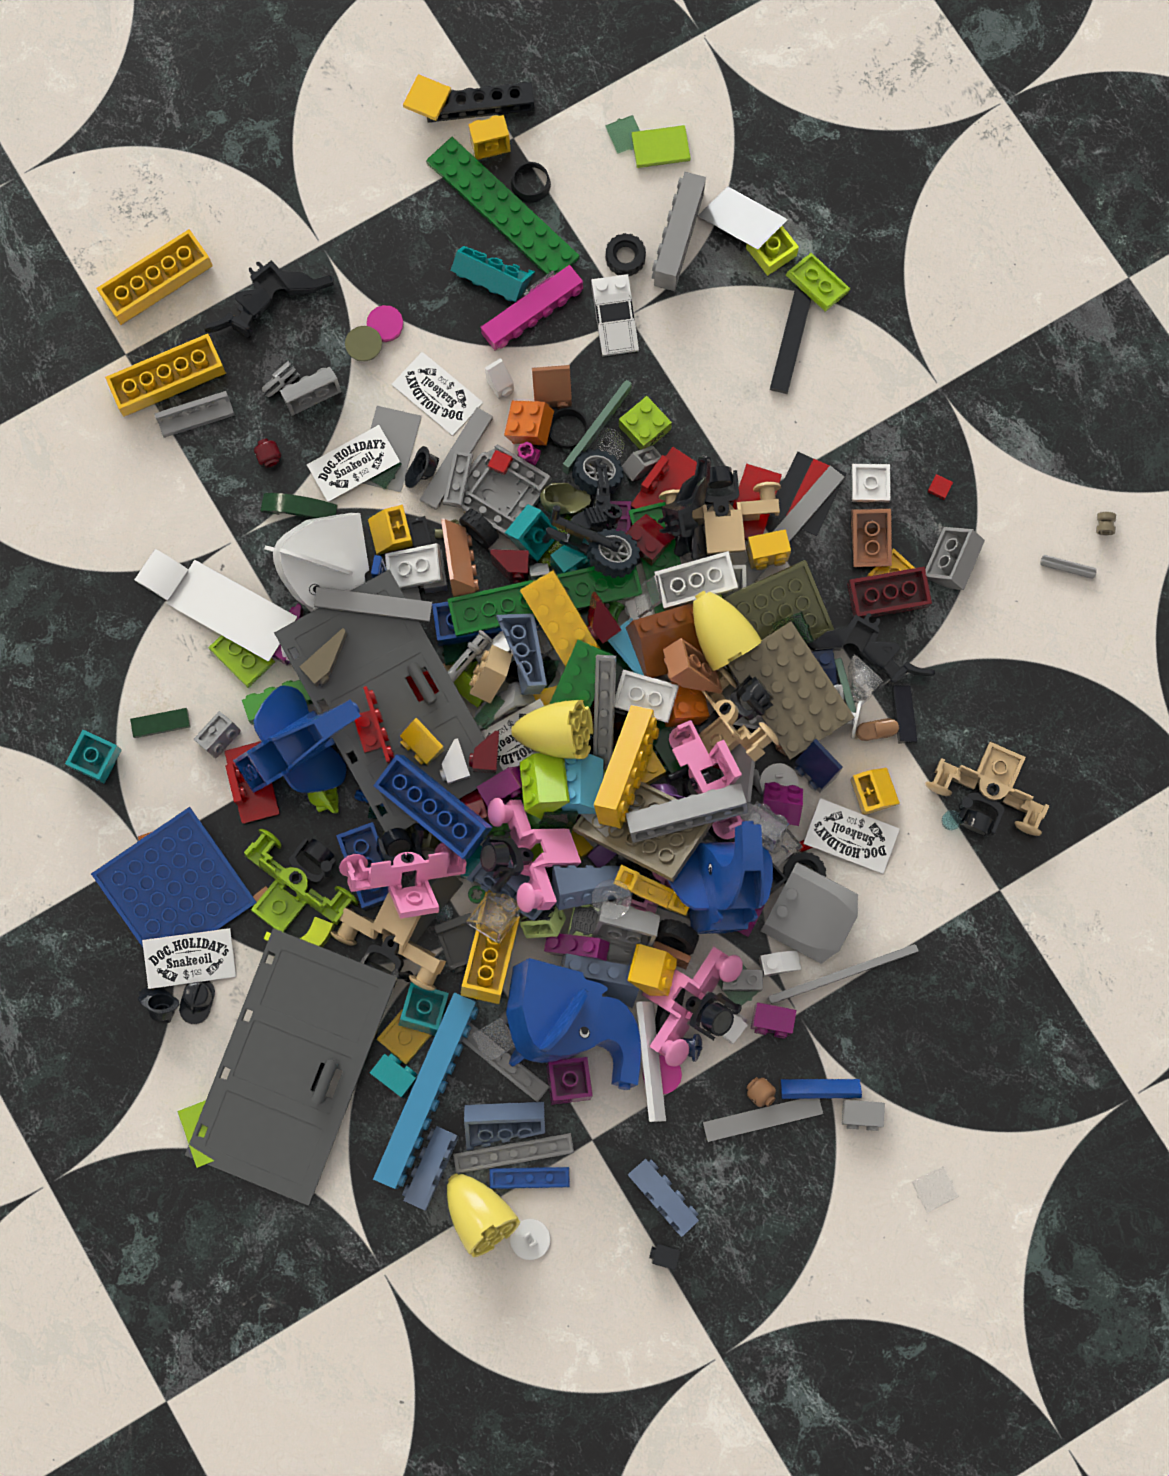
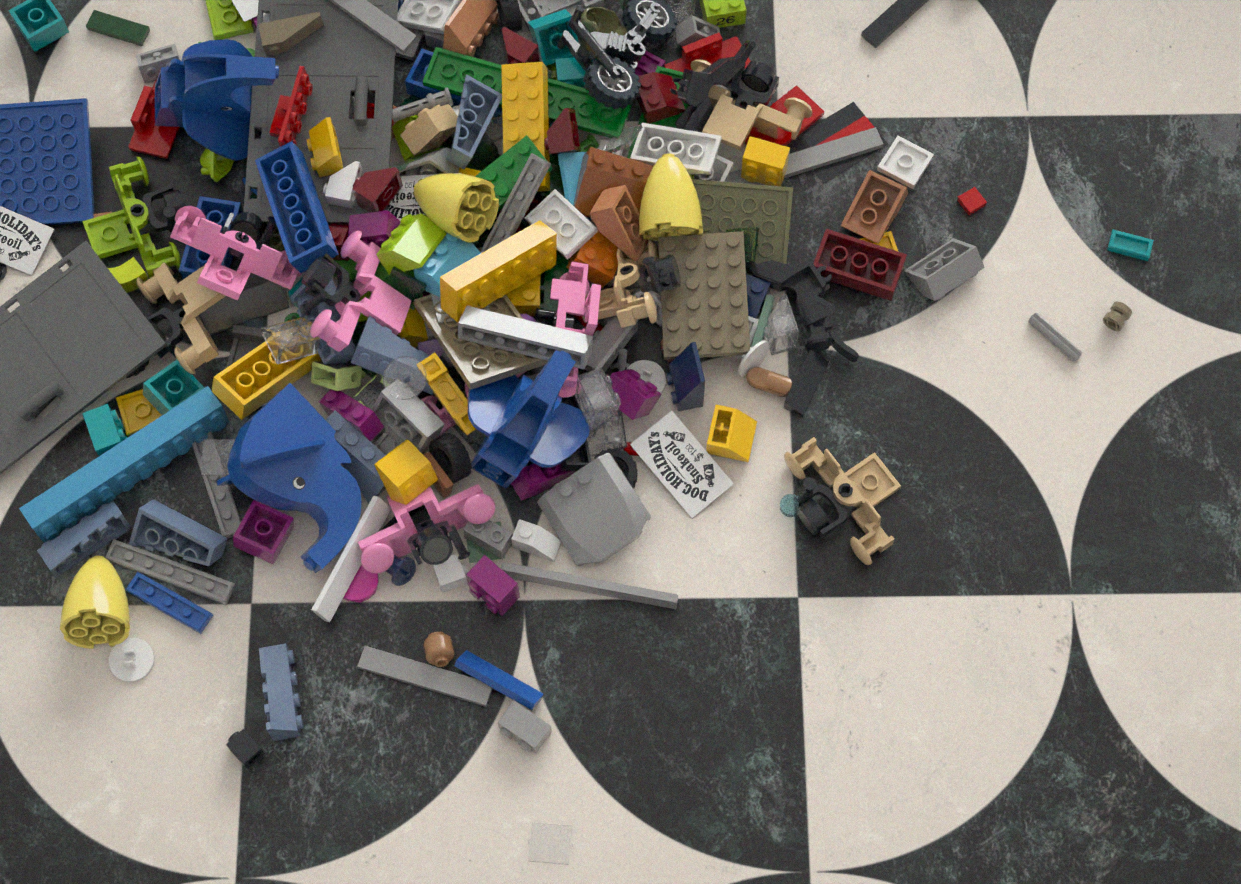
camera: 30 degrees right, 10 degrees down
(1080, 456) = (1130, 245): none -> teal tile

